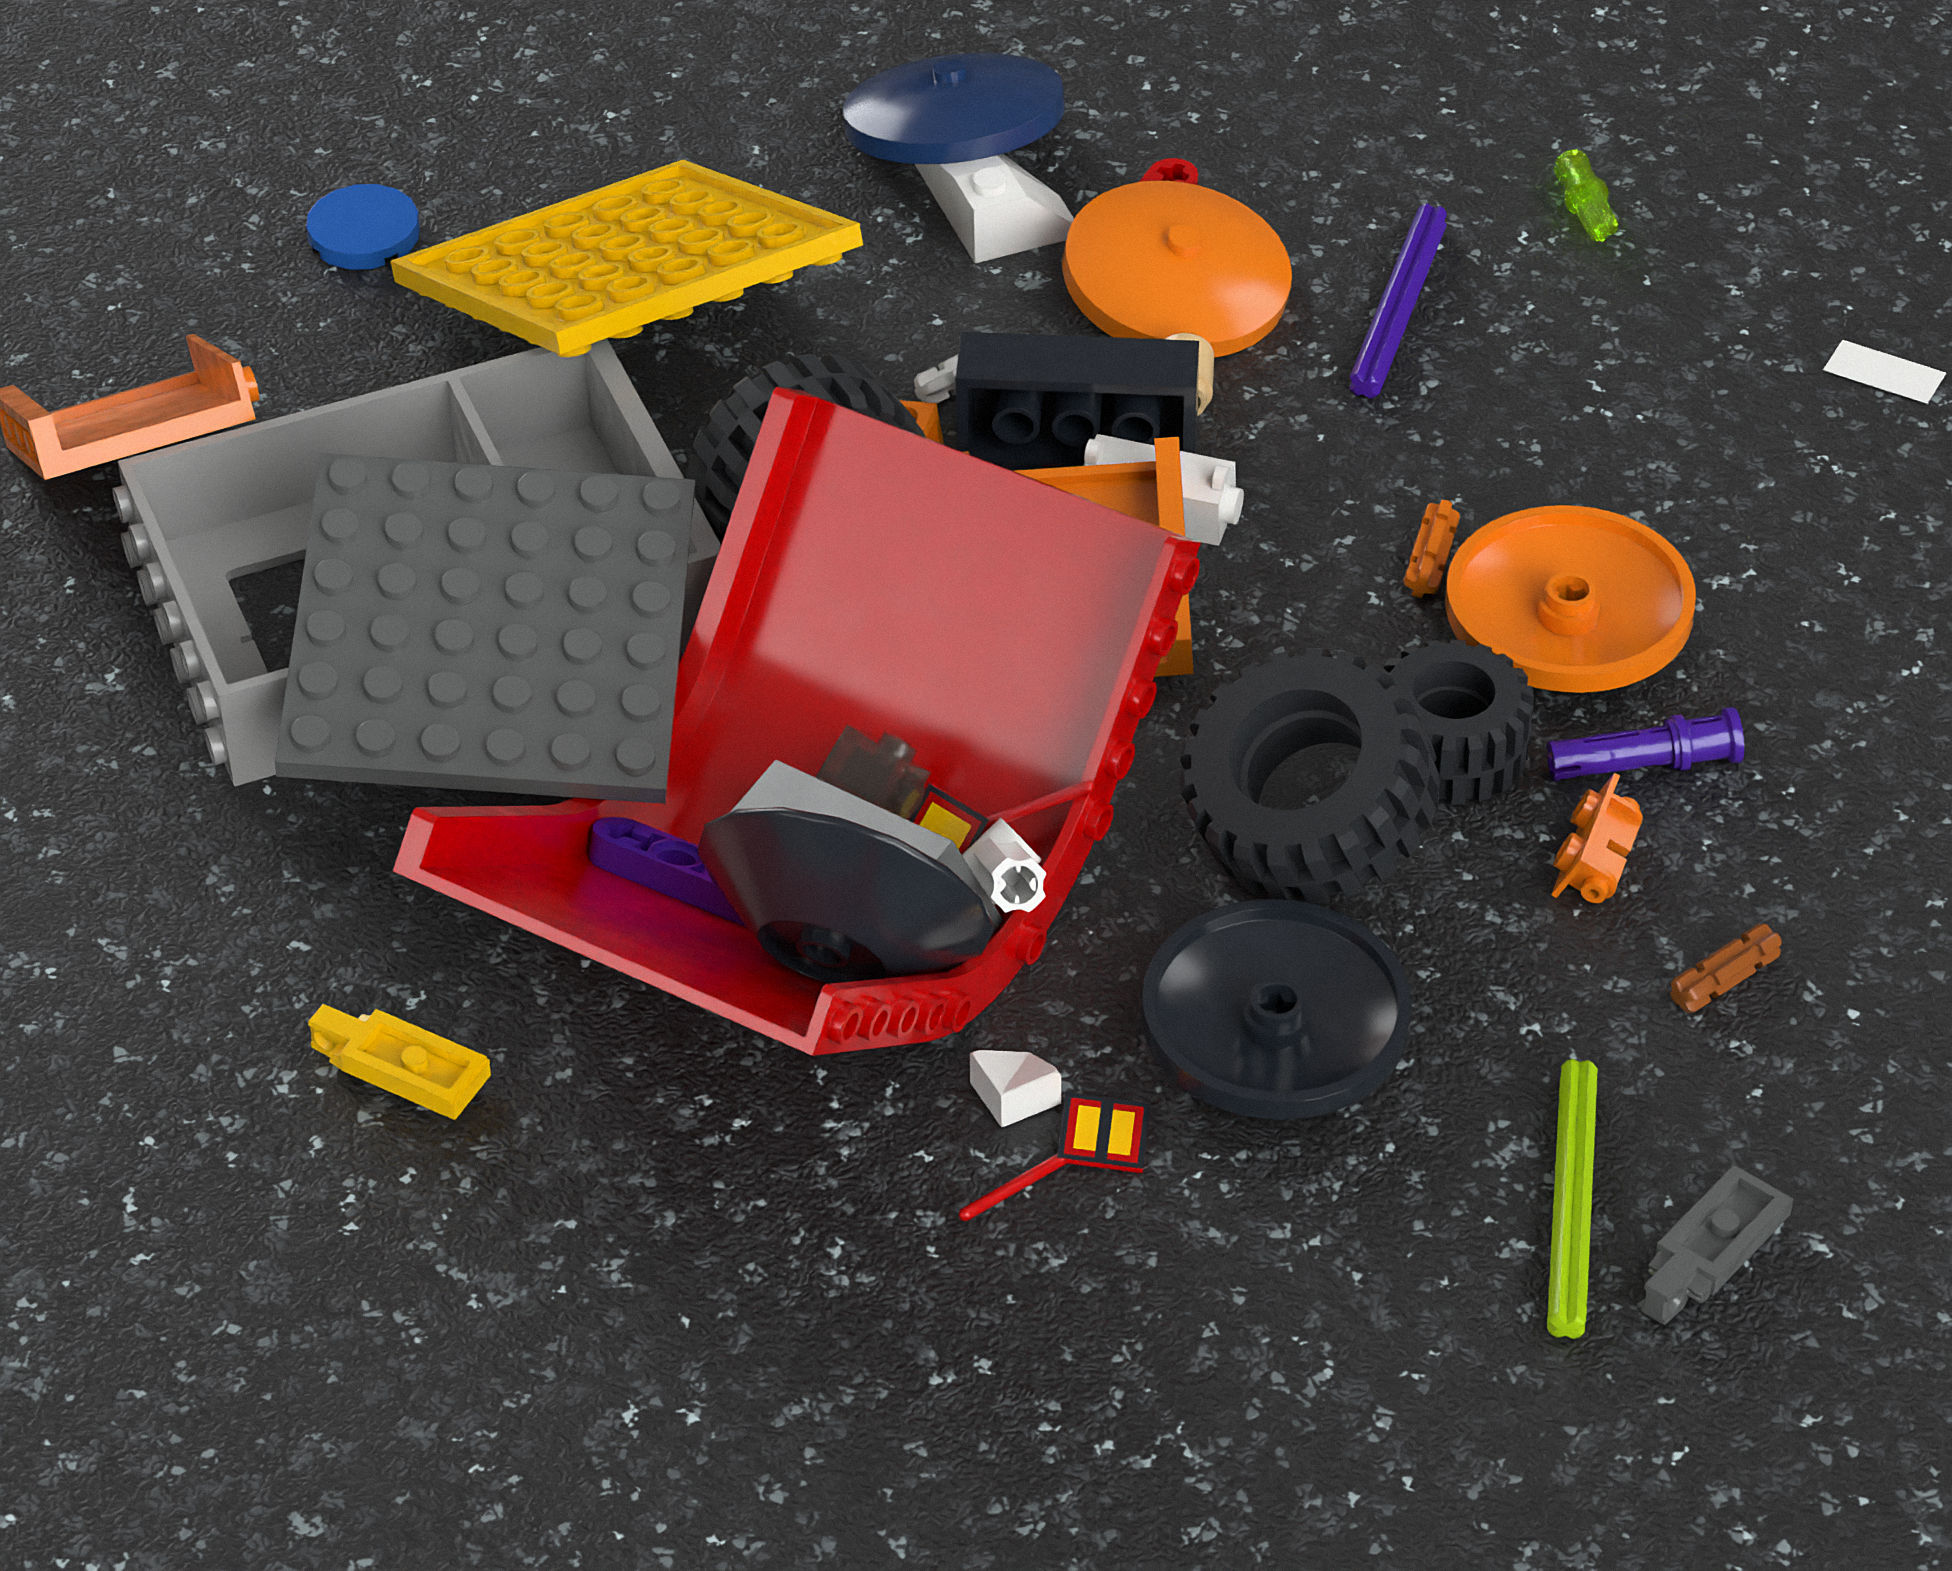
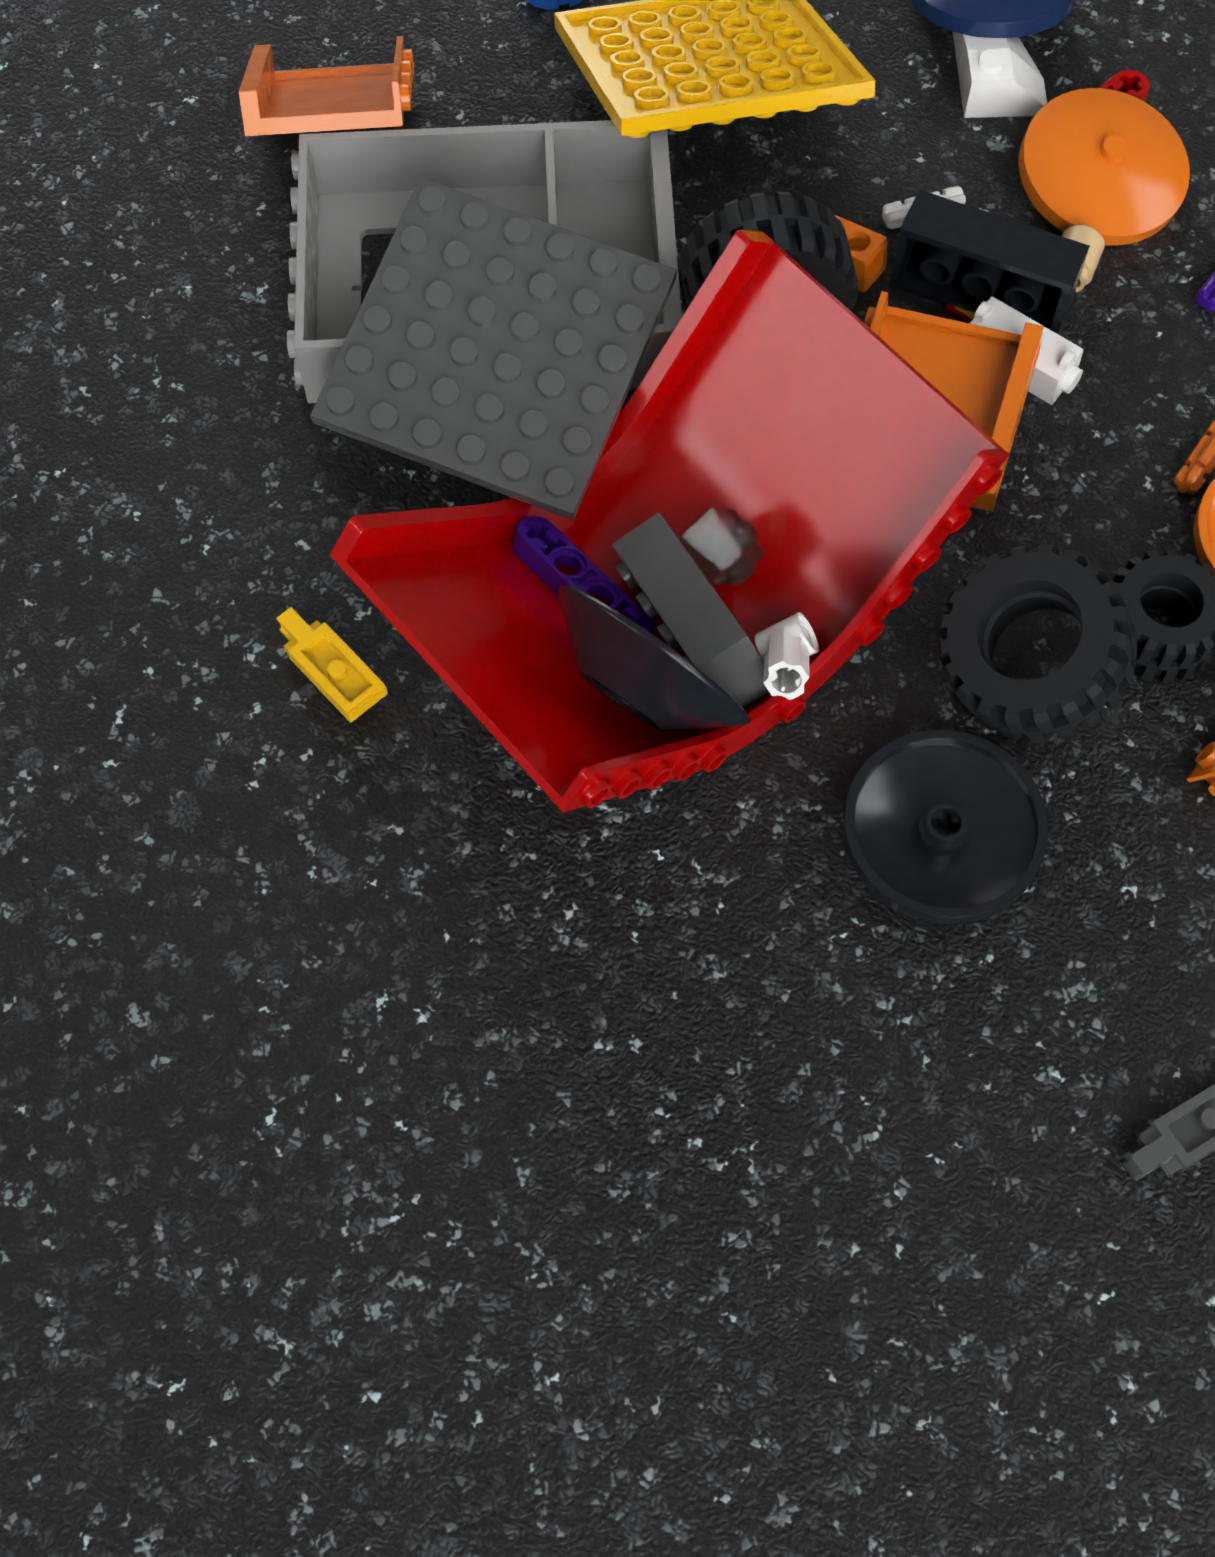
camera: 20 degrees right, 20 degrees up
(965, 826) = (761, 603): piece -> none
(1014, 1084) = (740, 820): white slope -> none
(1092, 1134) = (784, 879): piece -> none
(1572, 1200) = (1105, 1053): lime axle -> none

